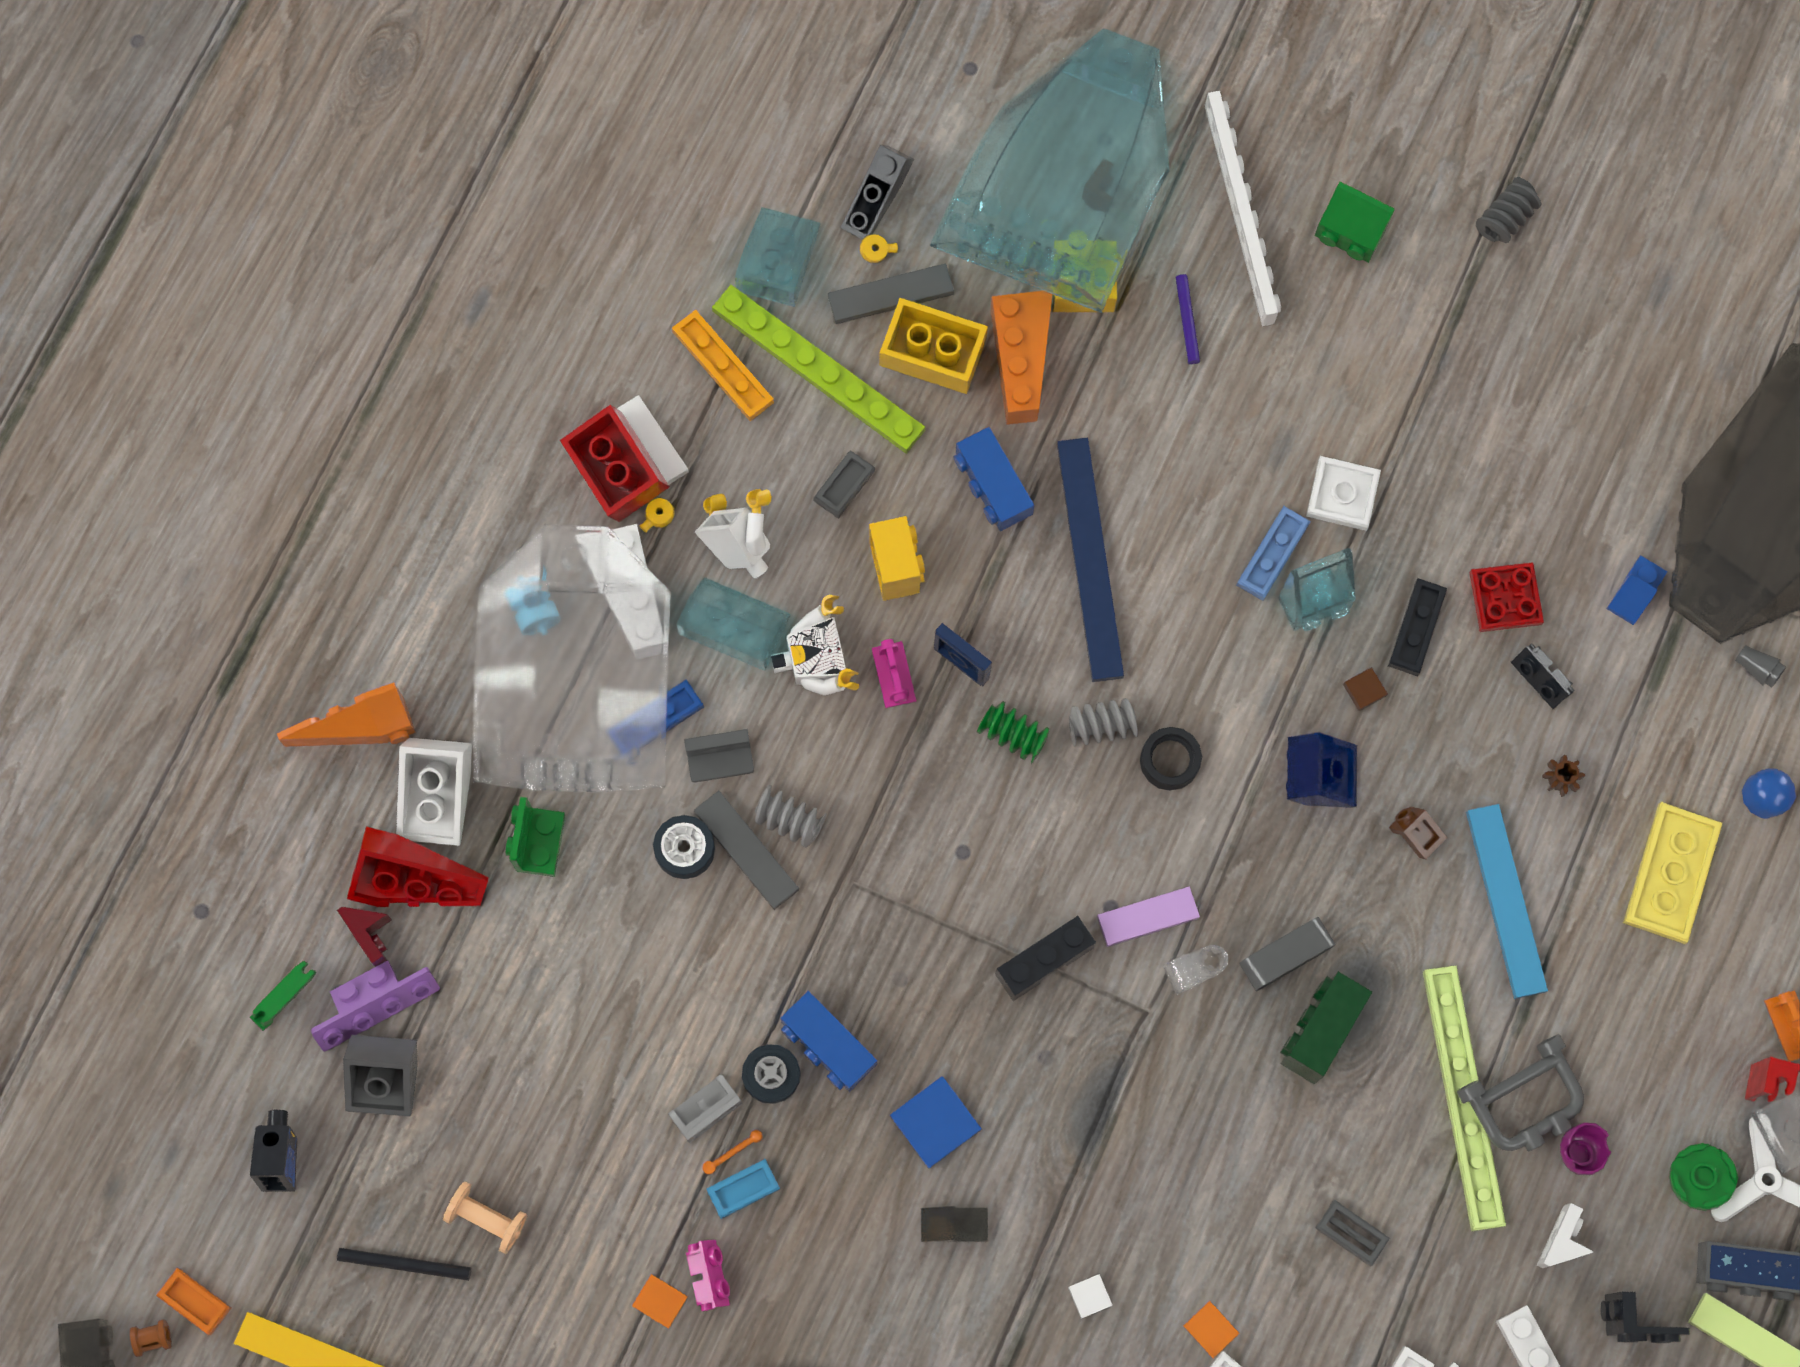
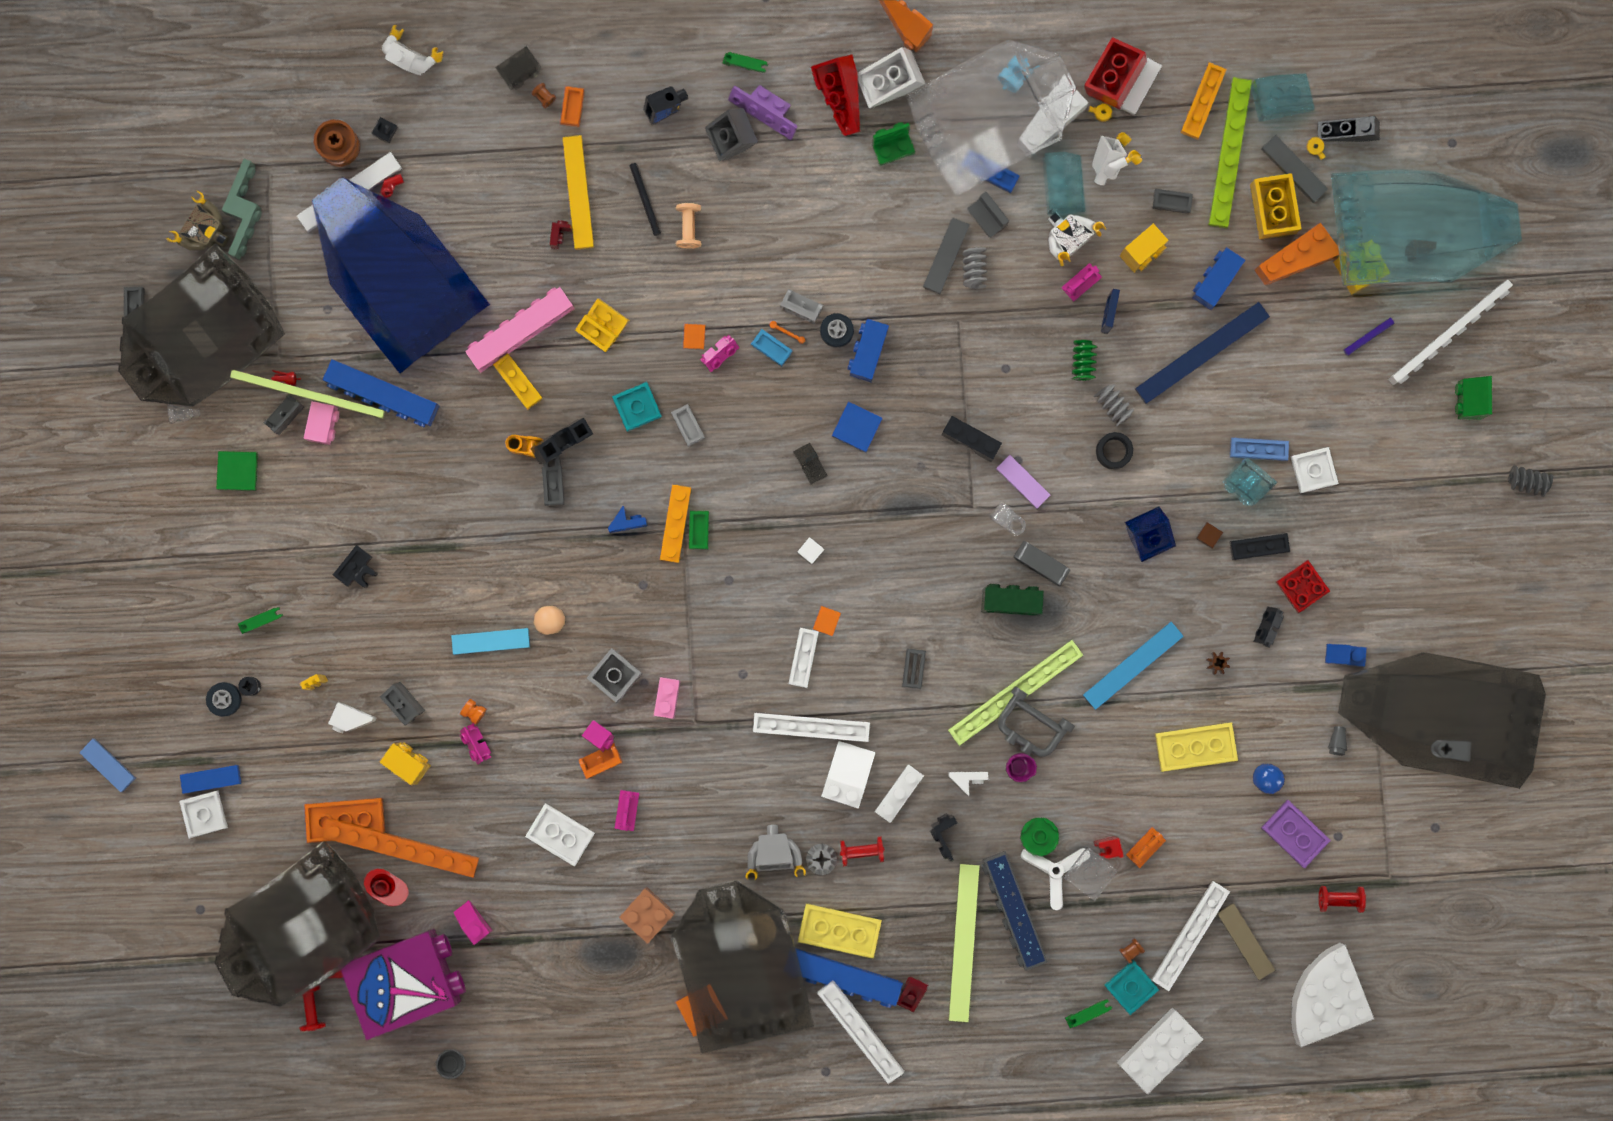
camera: 65 degrees right, 10 degrees up
(362, 925) = (800, 82): dark red slope -> none
(671, 836) = (933, 213): wheel -> none
(1418, 831) = (1145, 600): reddish brown bracket -> none

